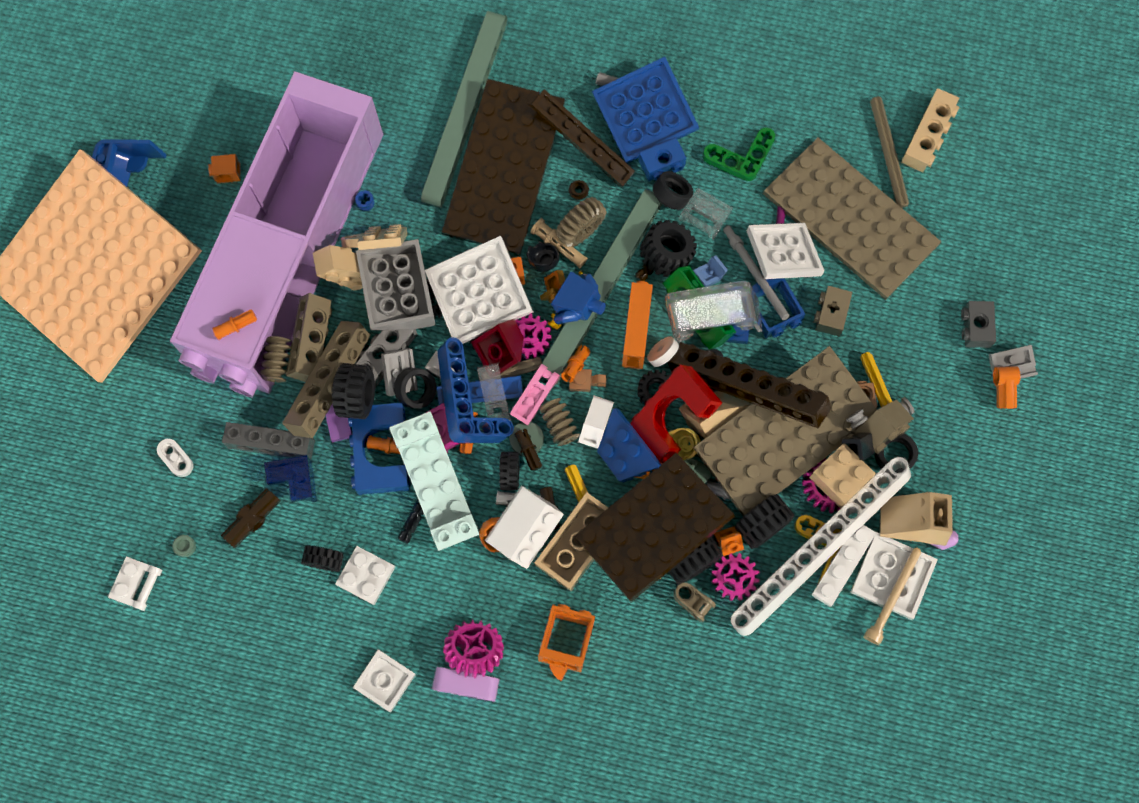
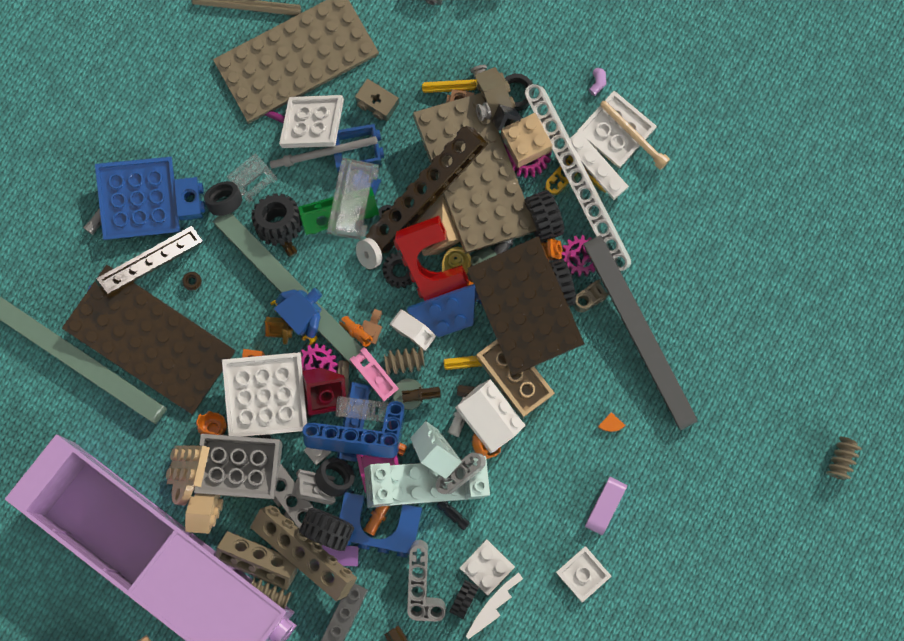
camera: 75 degrees left, 5 degrees up
(225, 168) = (61, 599): orange brick -> none
(234, 324) = (241, 614): orange axle -> none
(297, 472) = (380, 602): clear blue panel -> none
(318, 591) = (489, 612): none -> white slope
(329, 508) = (420, 580): none -> light grey beam
(361, 196) = (142, 474): blue bush -> none
(434, 251) = (211, 423): none -> orange hair
(455, 519) = (469, 473): none -> light grey beam
(468, 478) = (434, 450): none -> light aqua wedge
(476, 655) = (568, 478): dark pink gear -> none
(509, 471) = (435, 415): black tyre -> none
(543, 257) = (247, 330): black hair -> none
(549, 236) = (230, 318): tan pin -> none
(558, 658) = (578, 390): orange window -> none
(581, 222) = (227, 286): dark tan gear -> none
(637, 325) = (338, 267): orange brick -> none
(667, 666) = (640, 332): none -> dark grey beam
(711, 272) = (308, 190): medium blue bracket -> none
(742, 163) = (214, 131): green beam -> none
(918, 518) = (577, 93): tan slope -> none

